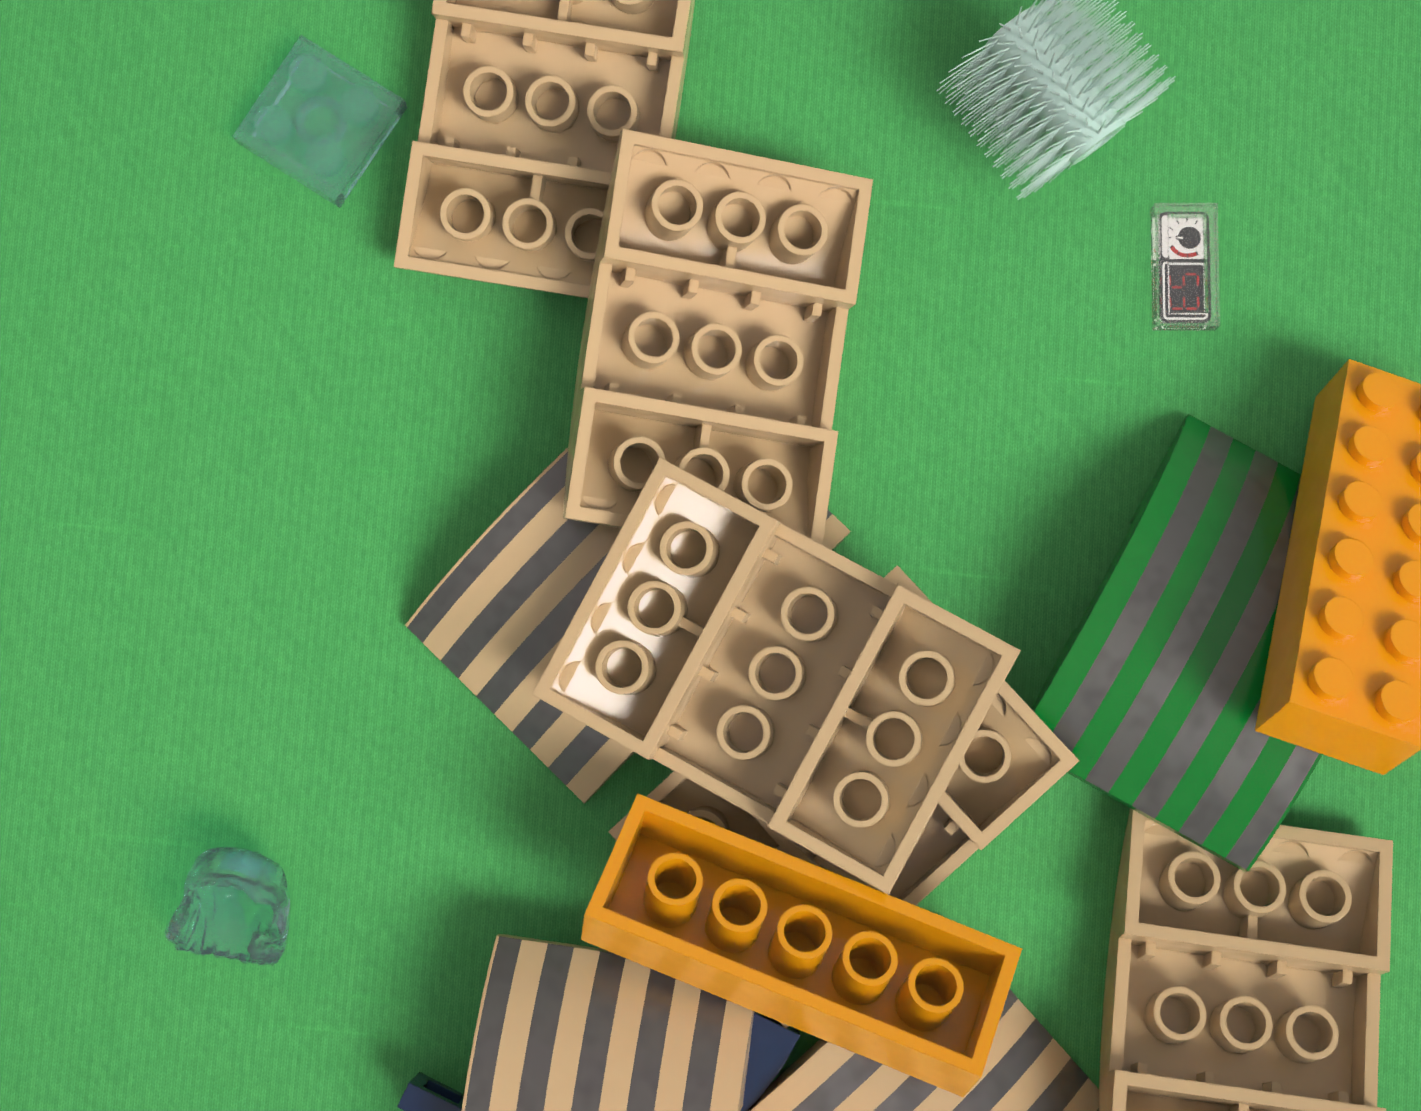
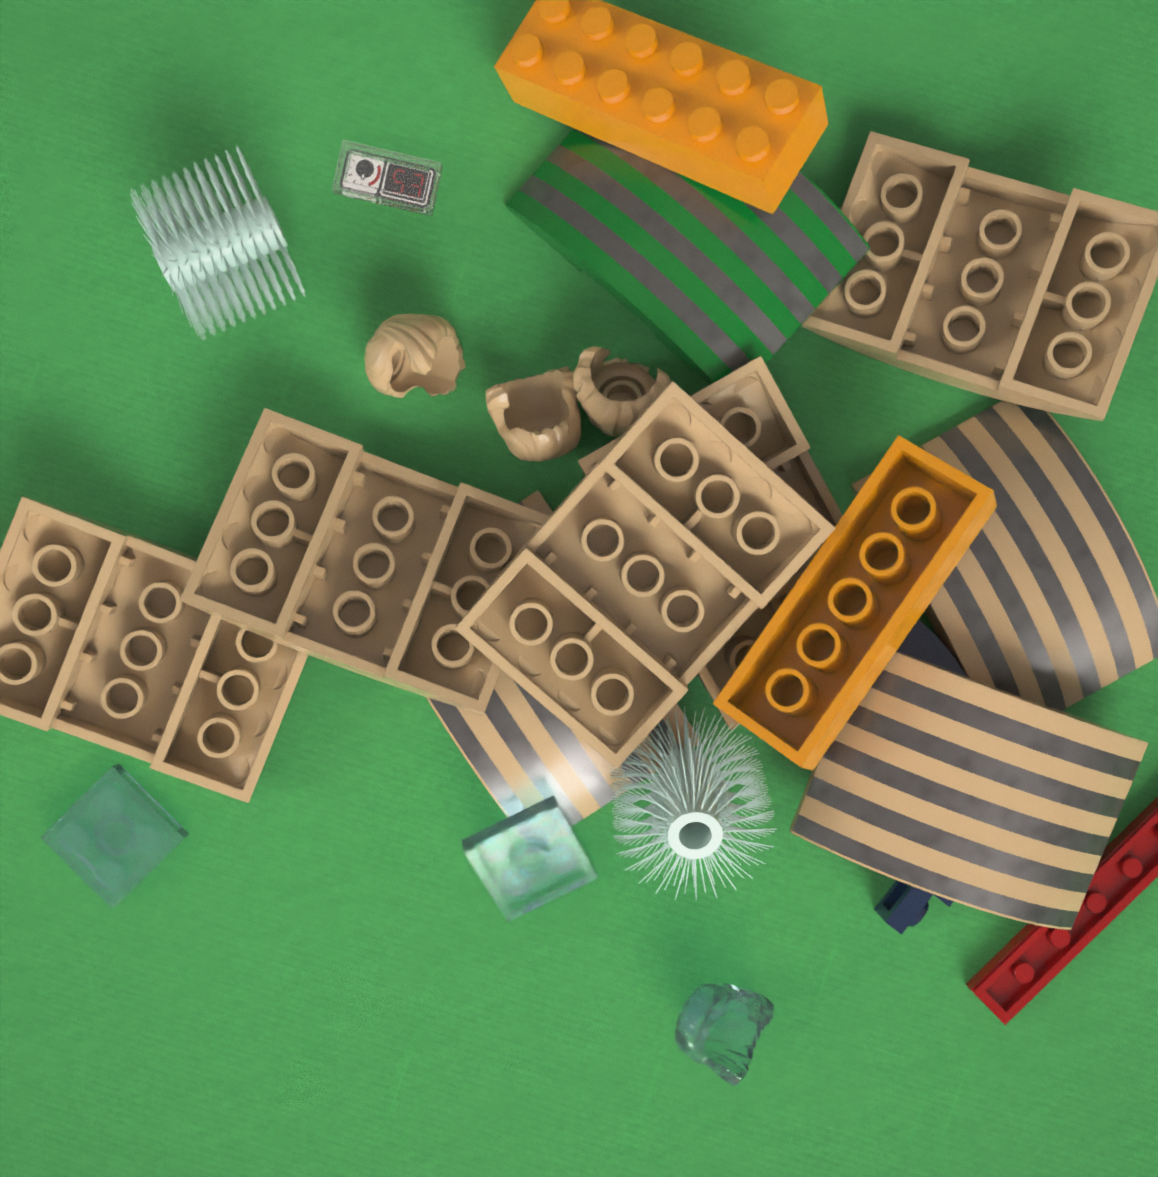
camera: 85 degrees left, 5 degrees up
(396, 620) = (529, 858): none -> clear light blue plate
(508, 795) = (689, 800): none -> light aqua piece
(942, 507) = (537, 414): none -> tan hair
(980, 344) = (414, 353): none -> tan hair
(994, 589) = (614, 390): none -> tan hair

